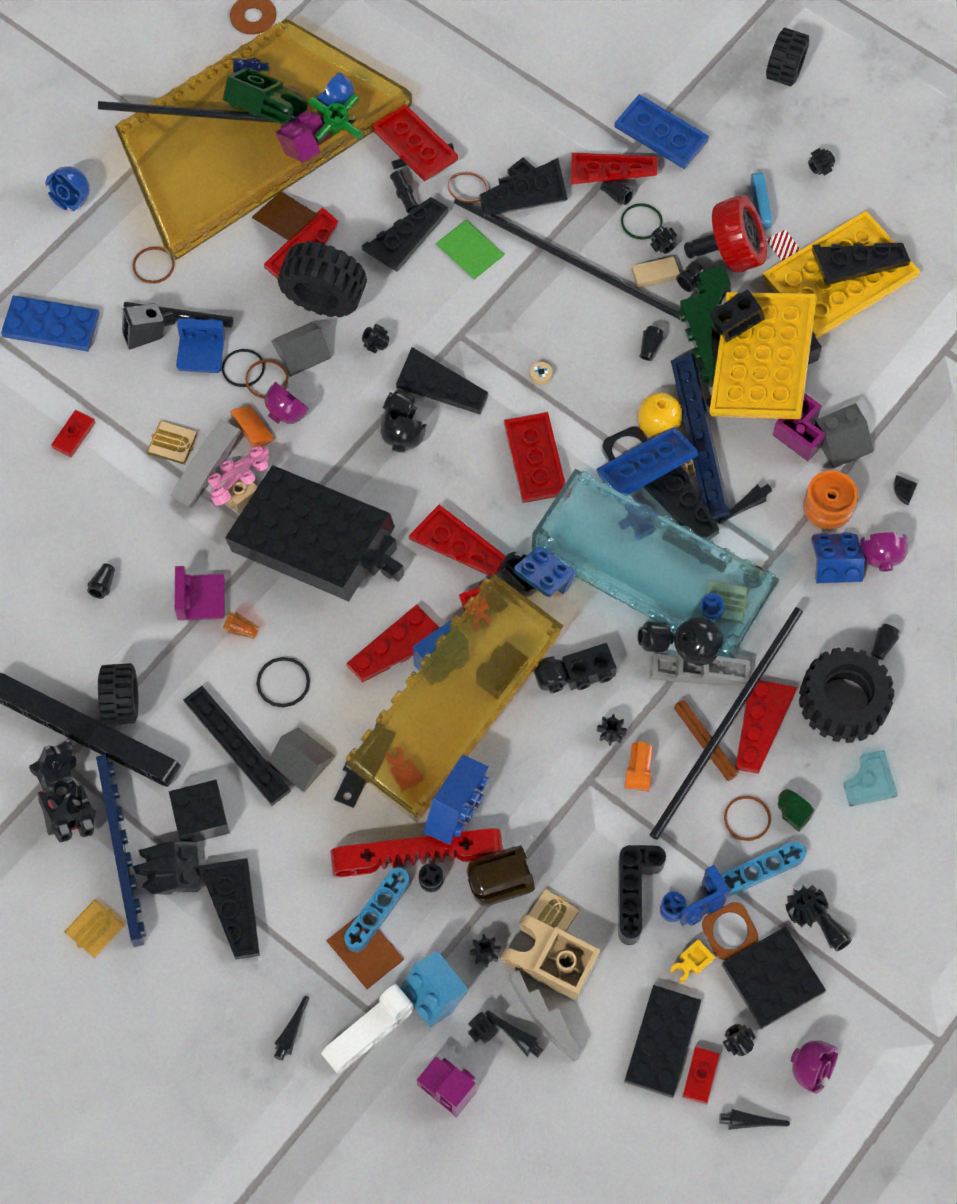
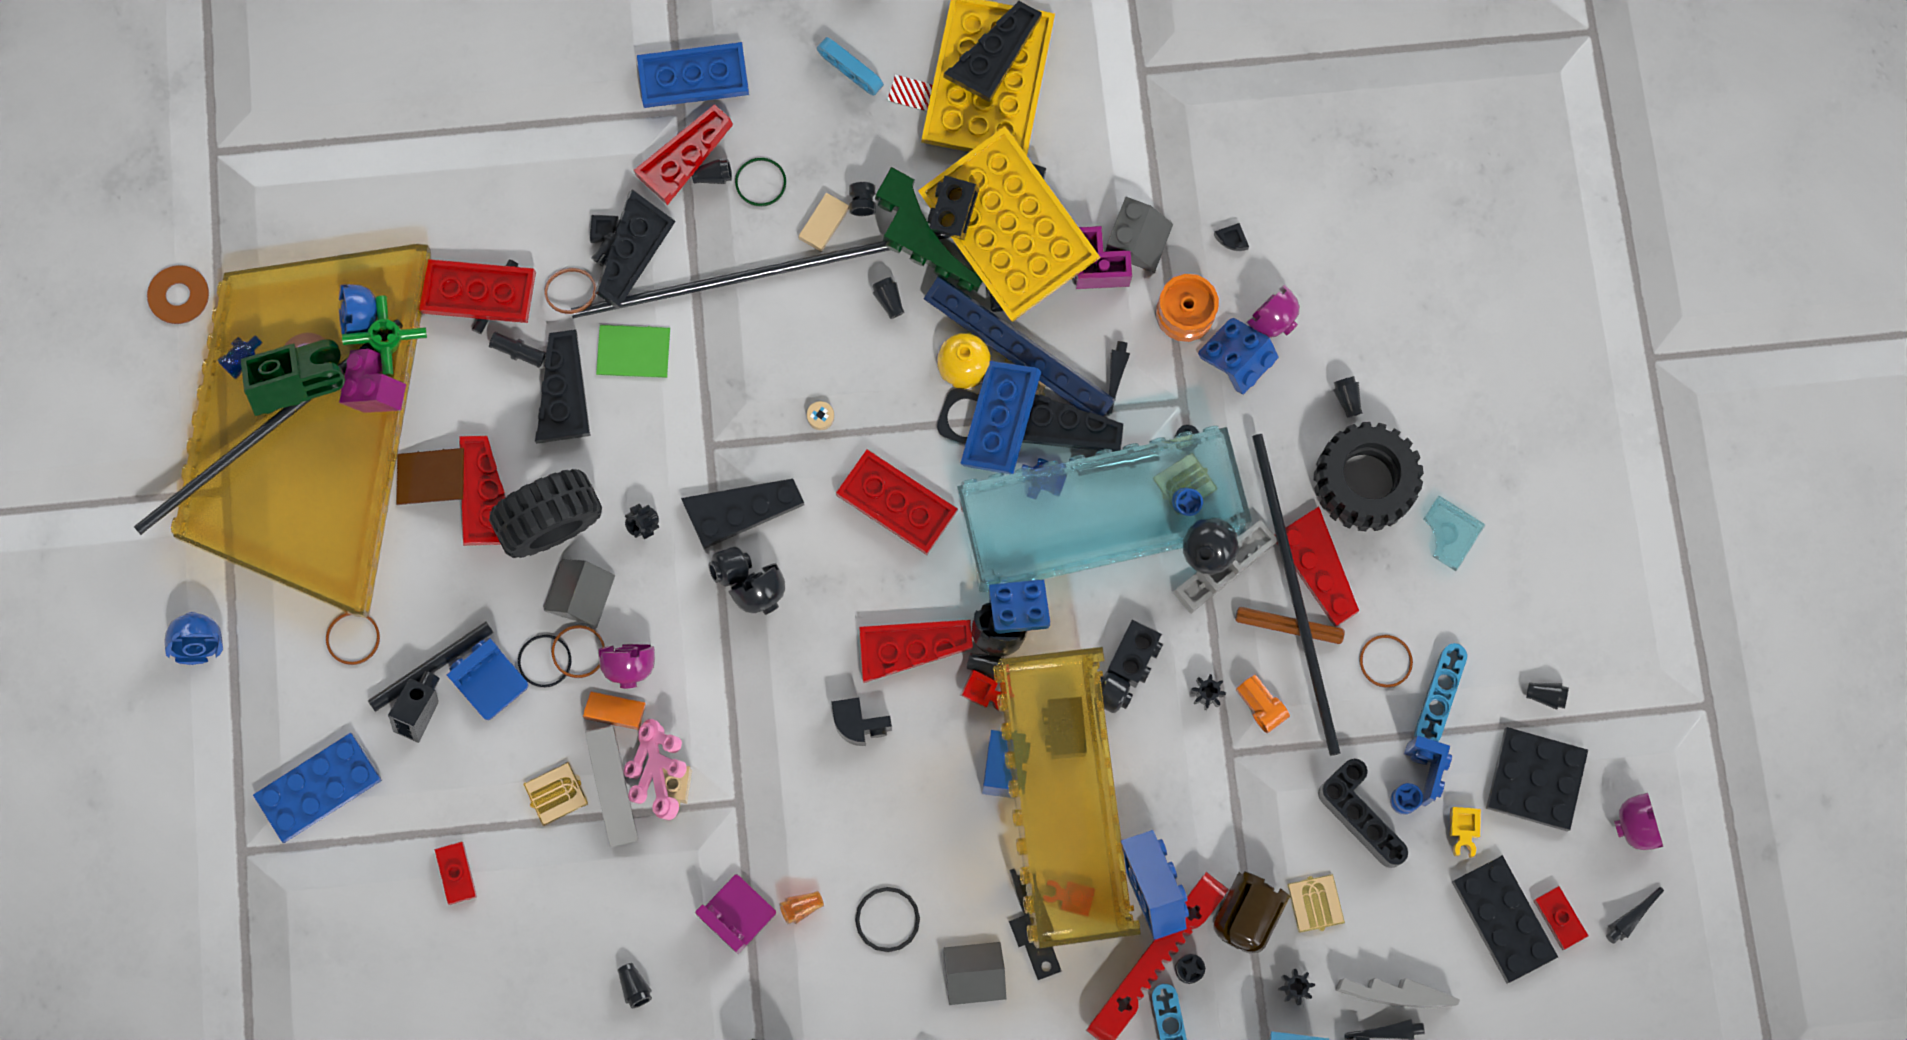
camera: 50 degrees left, 10 degrees up
(237, 746) = (907, 1015): black tile -> none
(310, 532) = (778, 763): black brick -> none
(392, 645) = (952, 783): red wing -> none
(551, 949) = (1351, 941): tan brick -> none
(655, 636) = (1162, 573): black head -> none
(663, 239) = (803, 184): black gear -> none
(708, 923) = (1489, 764): dark orange piece -> none
(736, 235) = (872, 126): red wheel -> none
(739, 1040) = (1564, 859): black gear -> none
(795, 809) = (1420, 618): dark green rock -> none
(807, 906) = (1519, 689): black gear -> none

